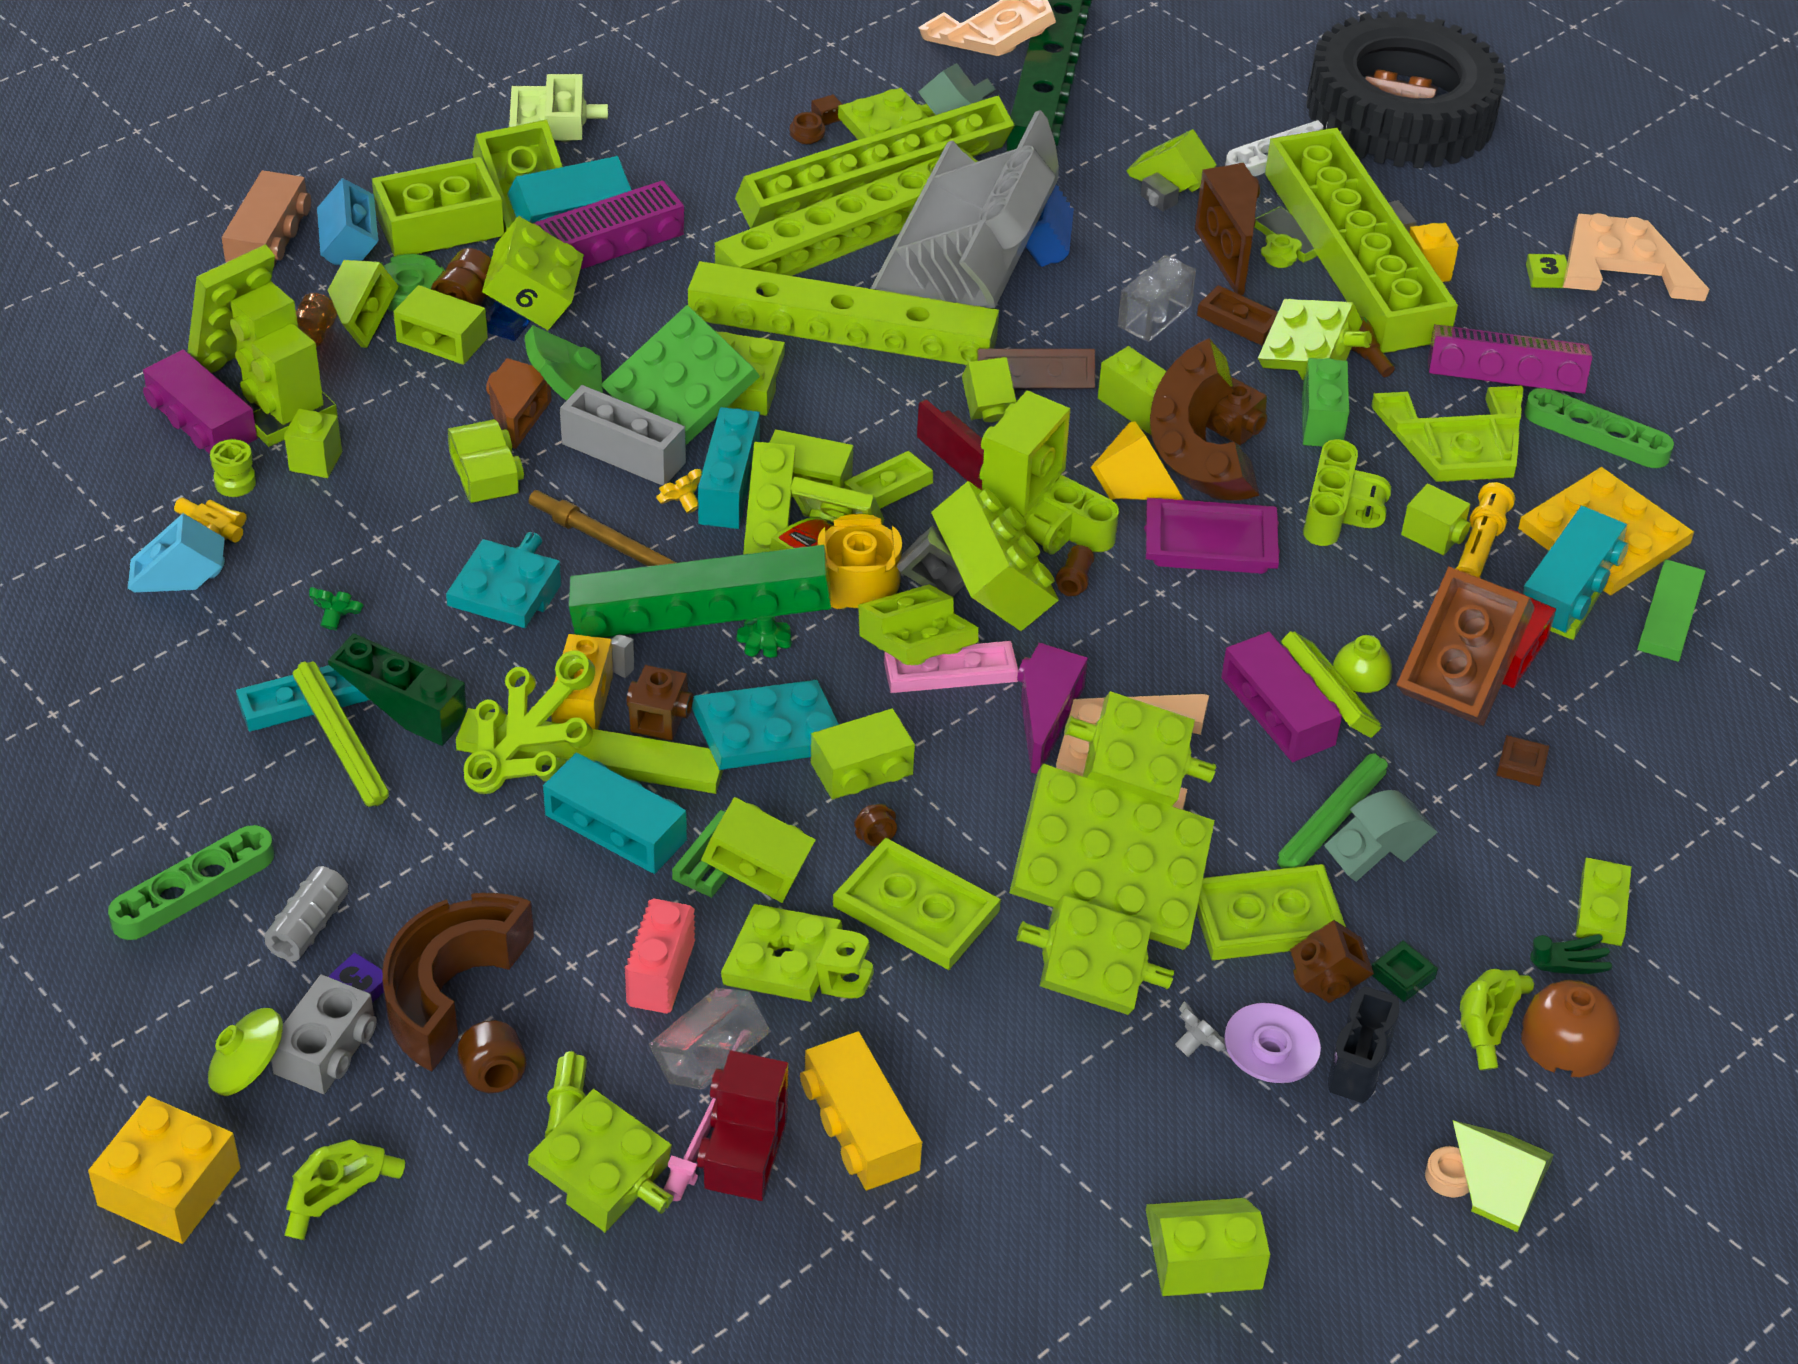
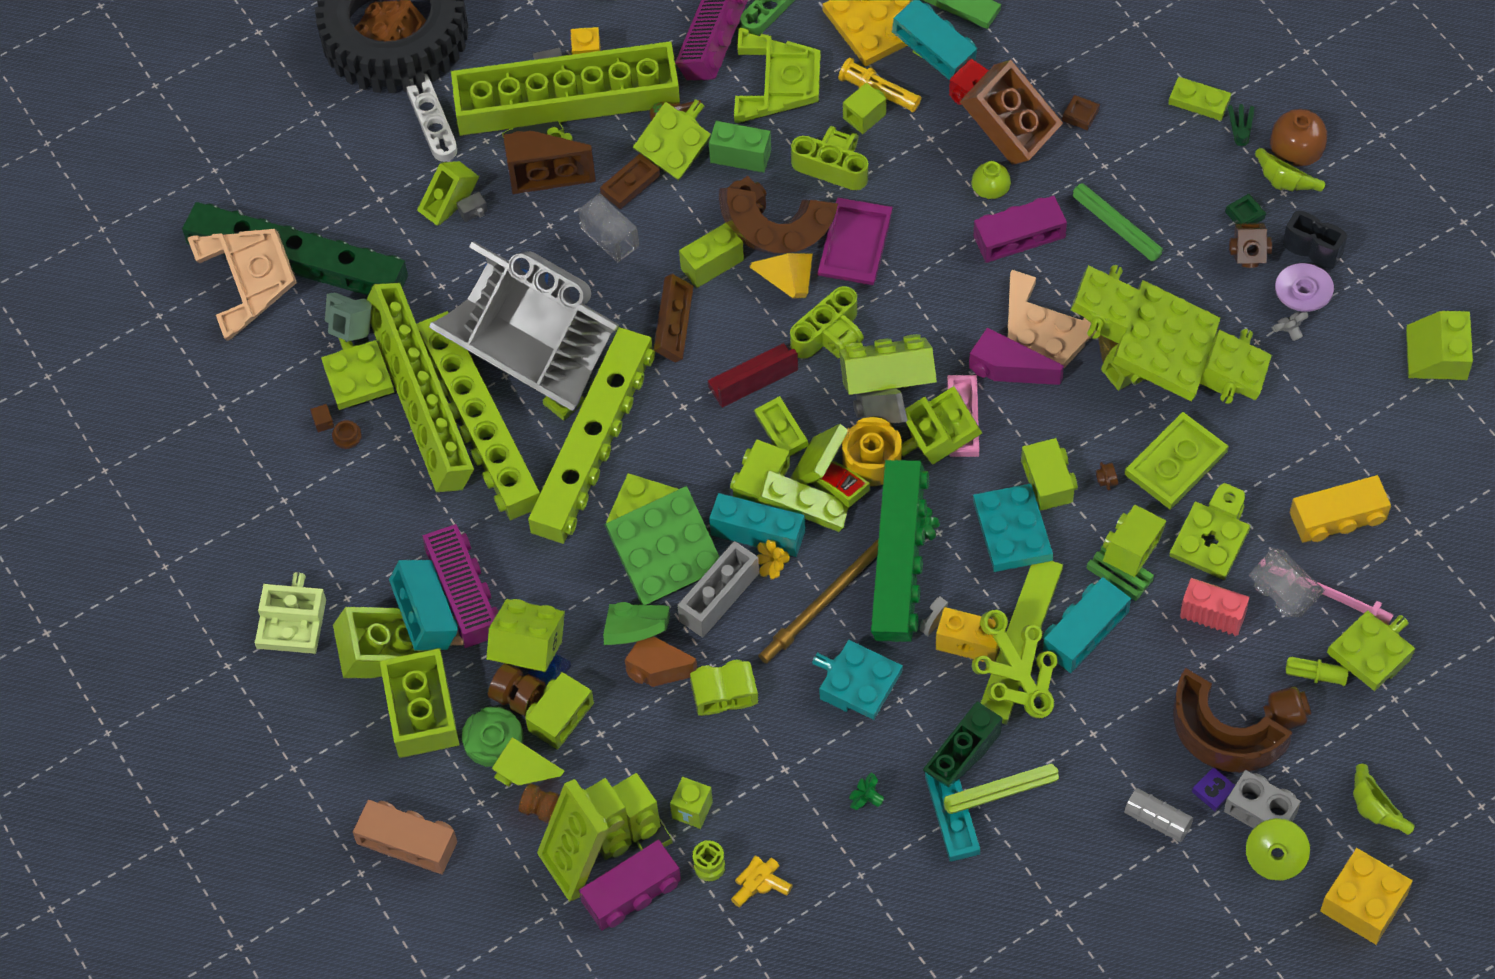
camera: 75 degrees left, 15 degrees up
(177, 558) = (807, 900): medium azure slope -> none
(188, 877) = (1121, 887): bright green beam -> none
(347, 223) = (430, 771): dark azure brick -> none
(658, 693) = (992, 588): reddish brown brick -> none
(746, 1123) = (1356, 570): dark red brick -> none
(988, 388) = (698, 348): lime brick -> none
(1025, 451) = (811, 324): lime brick -> none
(1073, 577) = (884, 327): reddish brown pin -> none
(1264, 910) = (1194, 270): lime tile -> none
(1331, 684) = (1011, 198): lime tile -> none
(1381, 825) = (1148, 194): sand green brick -> none
(1446, 1172) = (1393, 220): light nougat tile -> none
(1500, 1173) = (1401, 190): slope -> none

